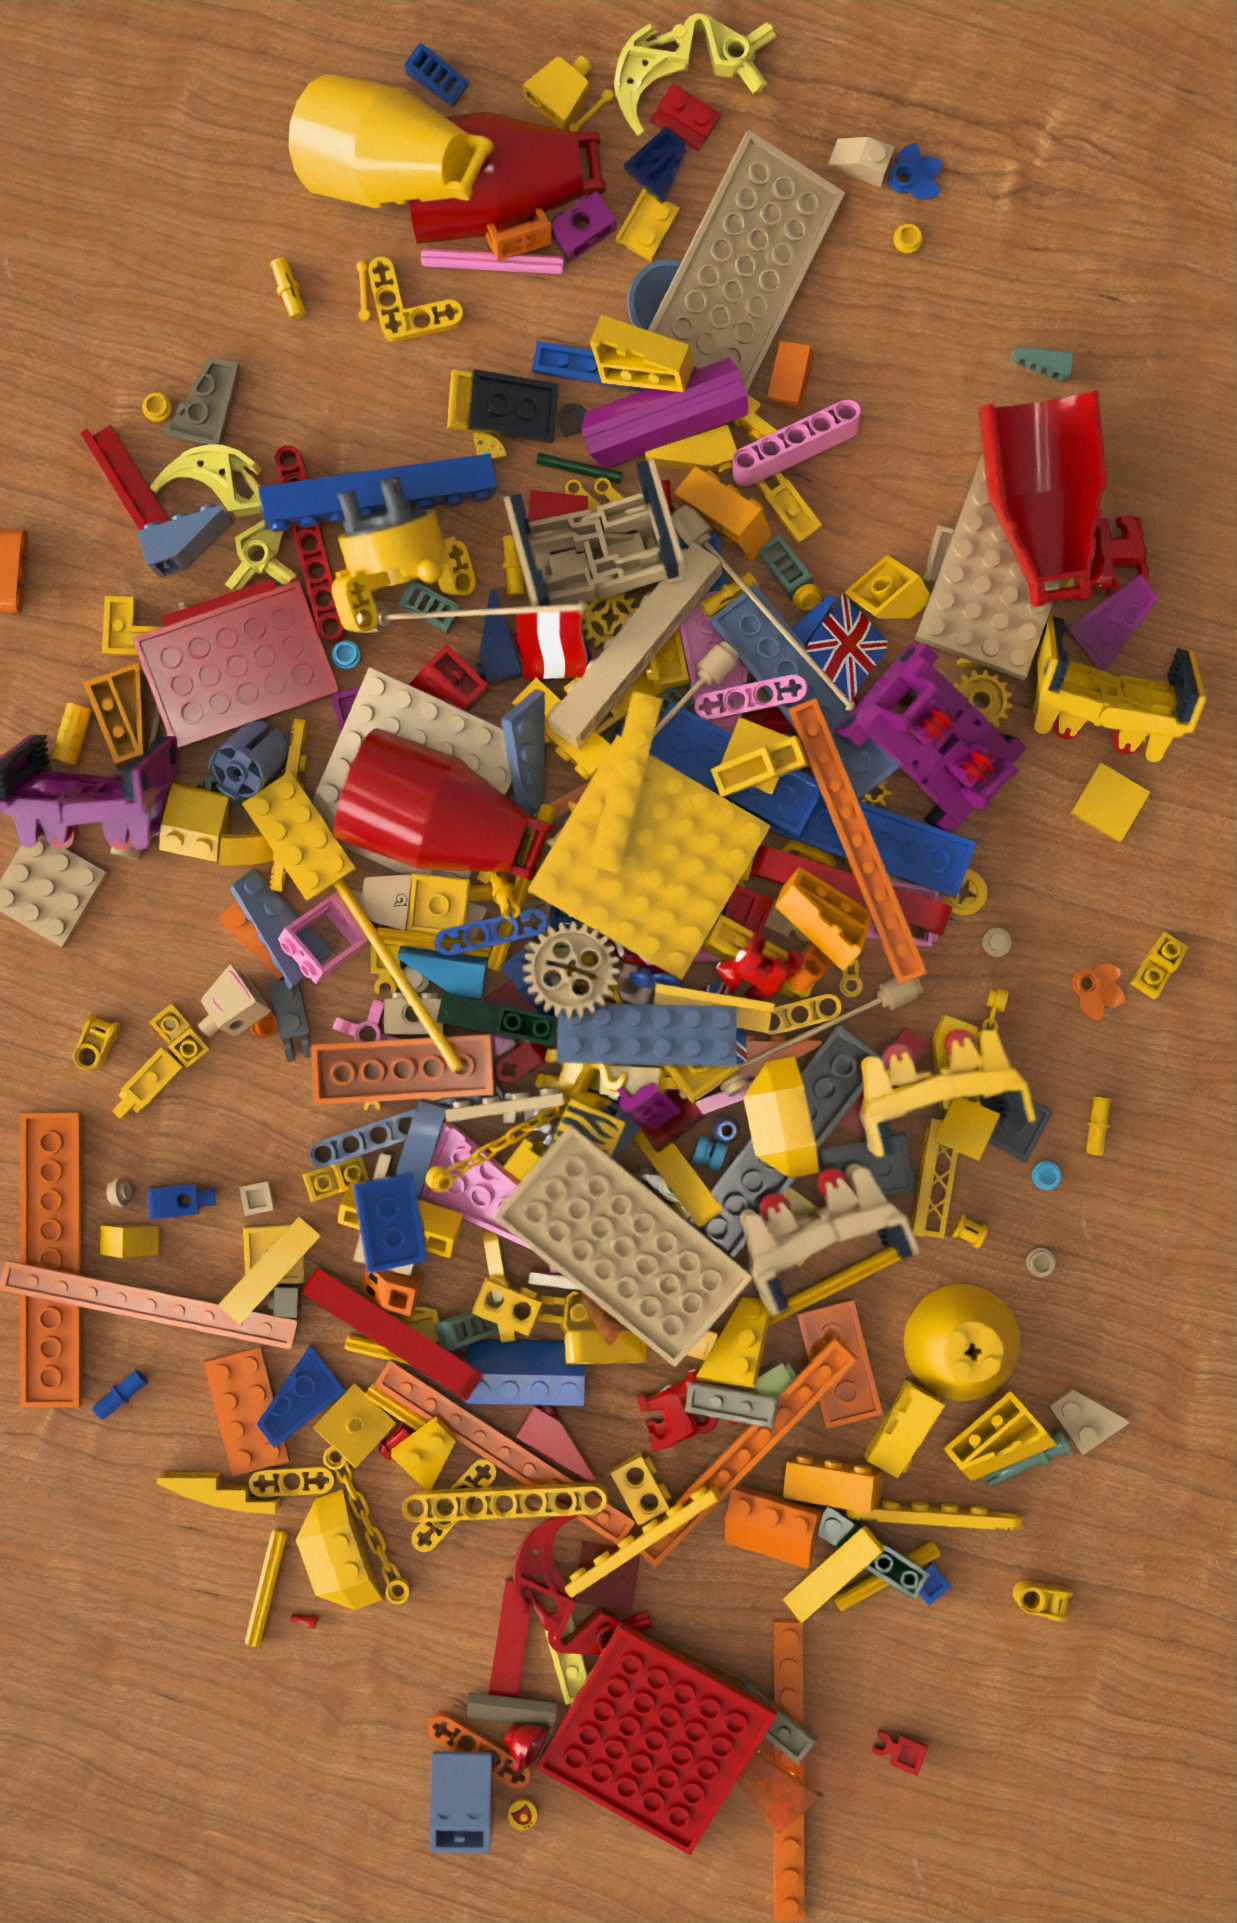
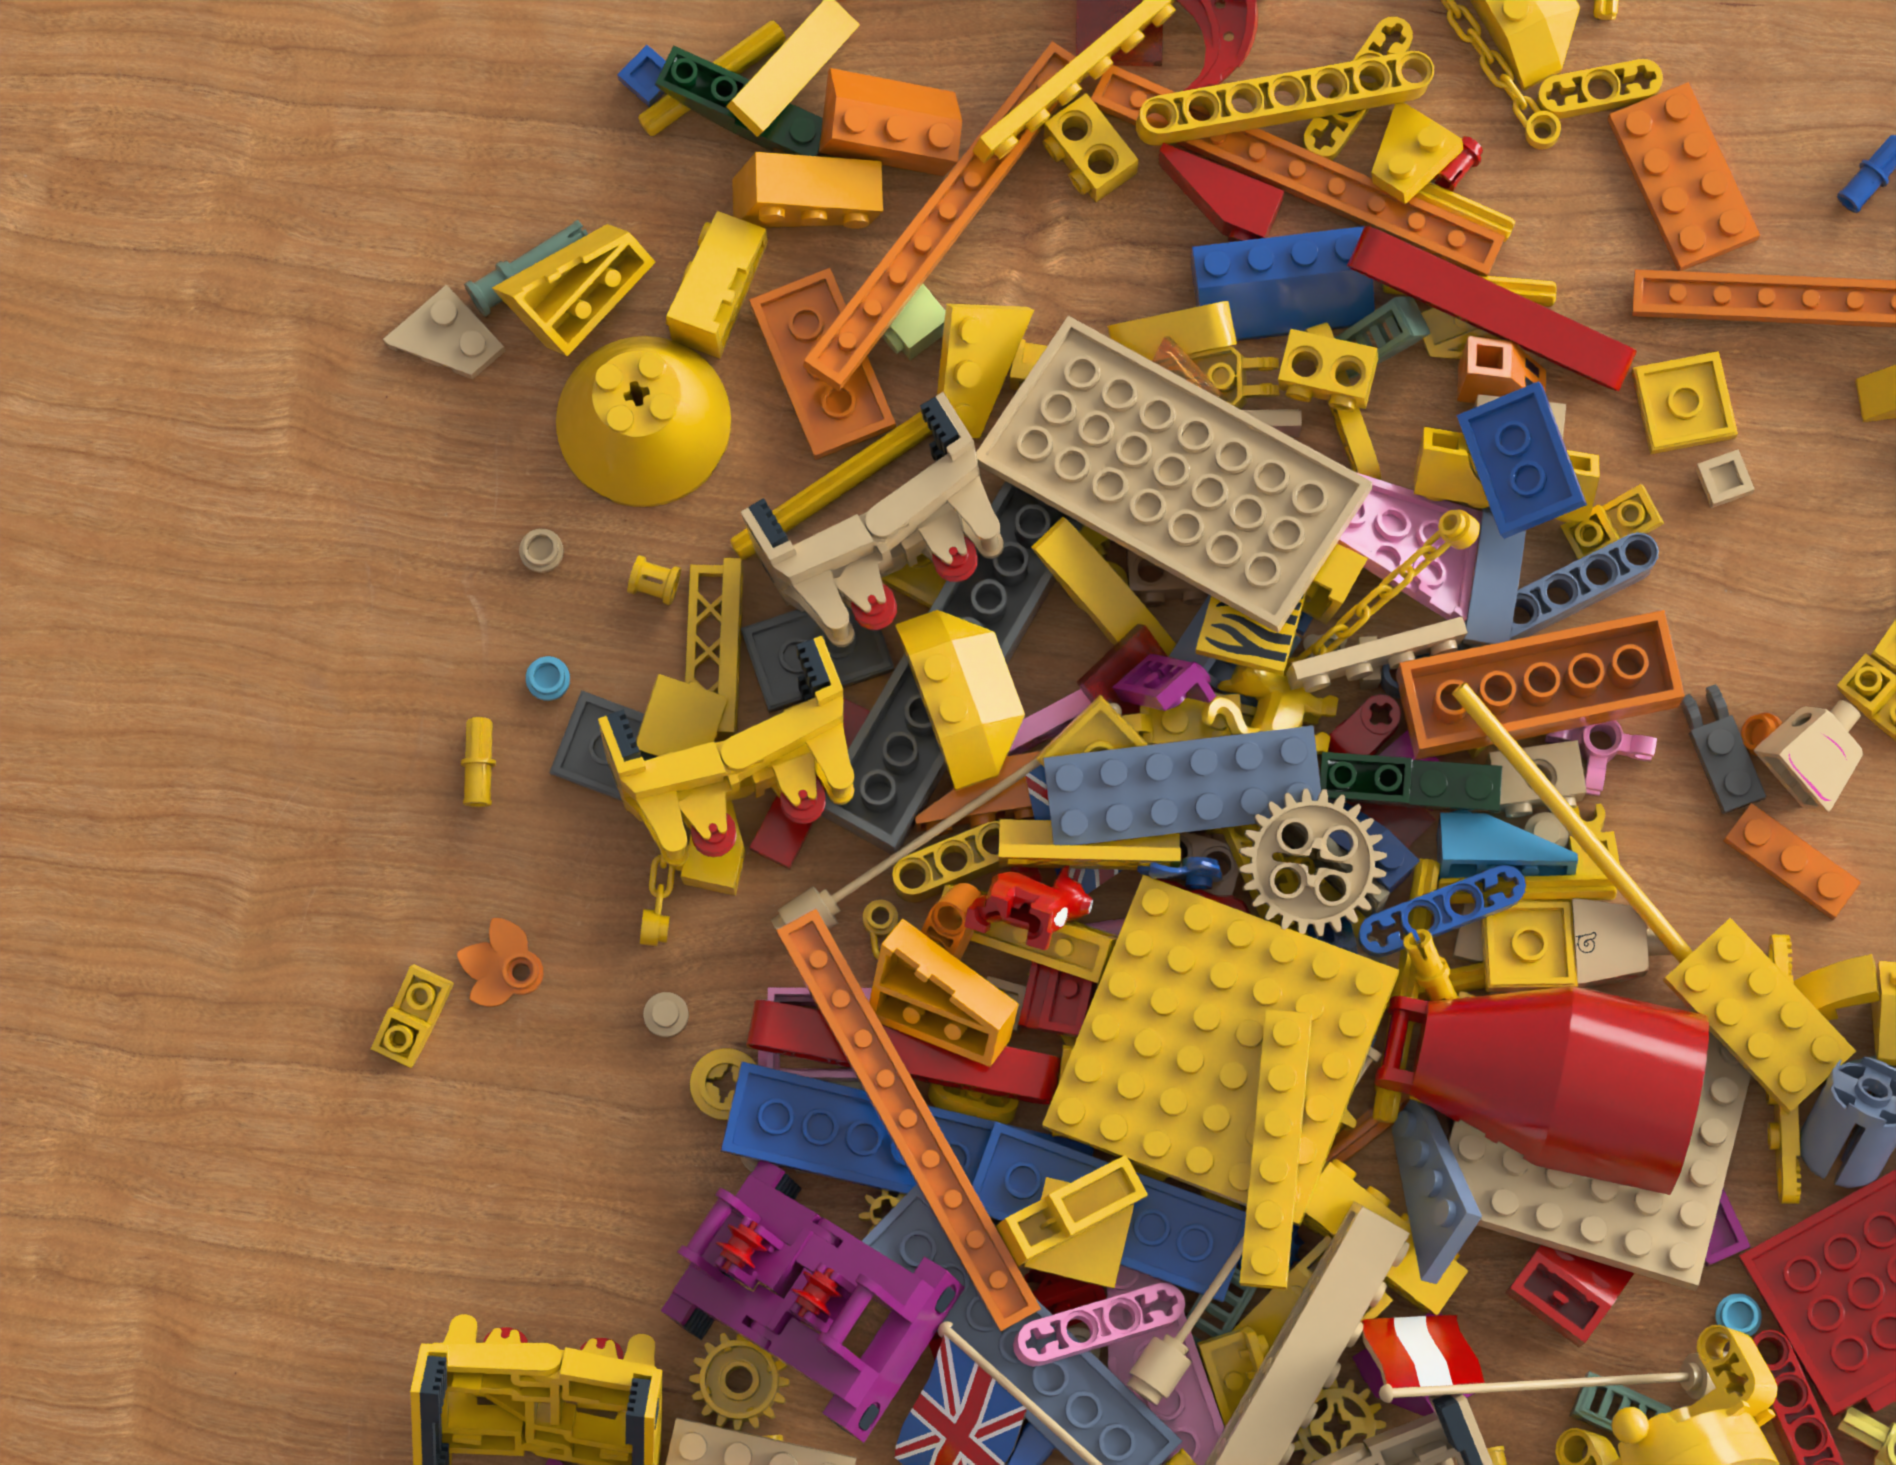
camera: 175 degrees right, 10 degrees down
(164, 1200) = (1855, 444): blue torso -> none
(208, 1489) = (1718, 58): yellow slope -> none
(269, 1270) = (1686, 375): yellow tile -> none
(270, 917) = (1753, 869): sand blue wing -> none
(286, 1301) = (1654, 336): dark tan plate -> none
(300, 1399) = (1608, 202): blue wing -> none
(342, 918) = (1674, 909): bright pink window -> none
(354, 1425) = (1522, 176): yellow plate -> none
(383, 1165) = (1544, 548): tan tile -> none
(496, 649) = (1504, 1354): dark blue slope -> none
(677, 1423) = (1049, 255): red animal -> none
(702, 1152) = (1069, 640): medium azure wheel -> none
(717, 1126) = (1039, 686): medium blue cone -> none
(731, 1404) = (977, 277): dark tan tile -> none
(735, 1084) = (1037, 737): tan plate -> none
(947, 1515) = (638, 171): yellow plate -> none
(1049, 1599) = (472, 72): yellow piece -> none
(1109, 802) = (516, 1255): yellow tile -> none

